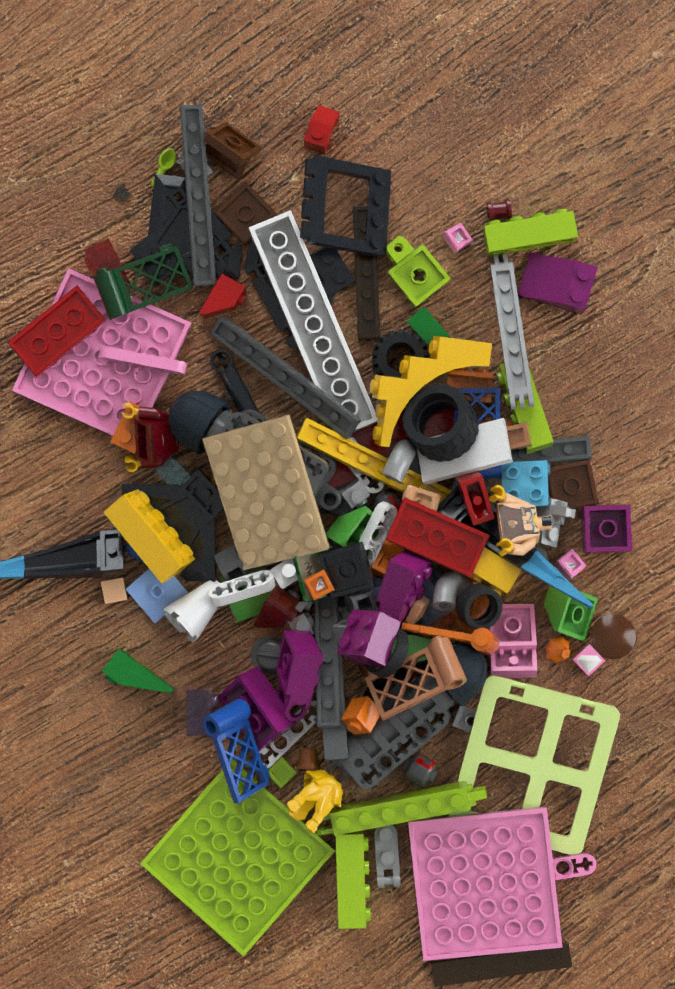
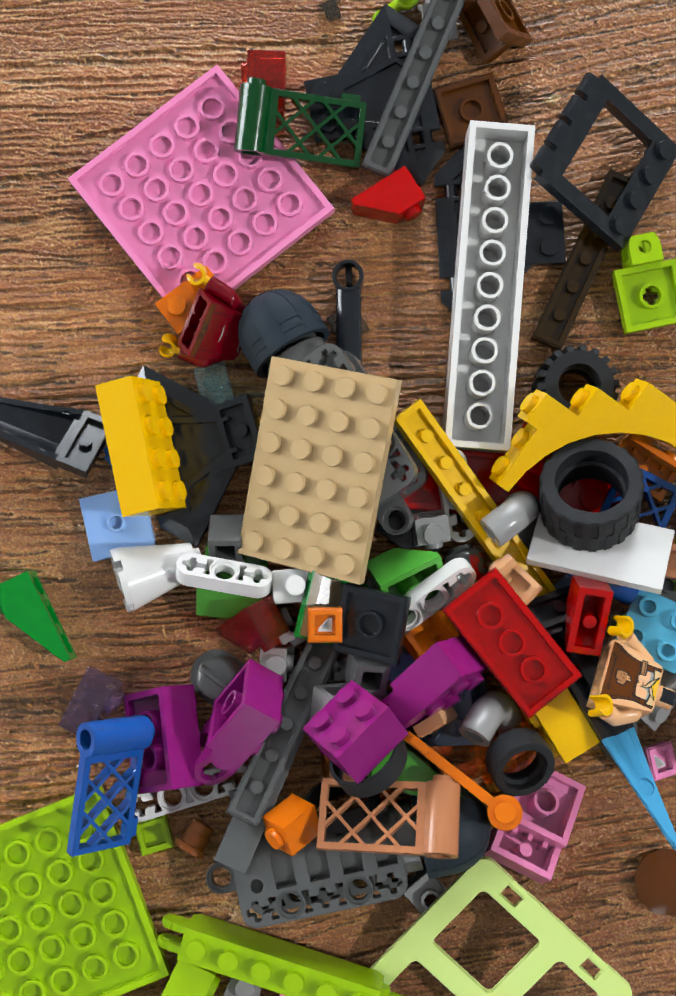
camera: 15 degrees right, 0 degrees up
(56, 331) = (161, 133): red tile -> none
(114, 590) = (64, 494): light nougat tile -> none
(142, 360) = (249, 222): bright pink beam -> none
(285, 377) = (419, 337): dark grey tile -> none
(319, 791) = (188, 889): yellow piece -> none
(321, 129) = (618, 54): red slope -> none
(420, 770) = (332, 930): dark grey head -> none
(426, 326) = (628, 361): green slope -> none
(558, 649) = (588, 863): orange piece -> none
(568, 614) = (625, 822): bright green slope -> none
(588, 660) = (619, 895): tile -> none

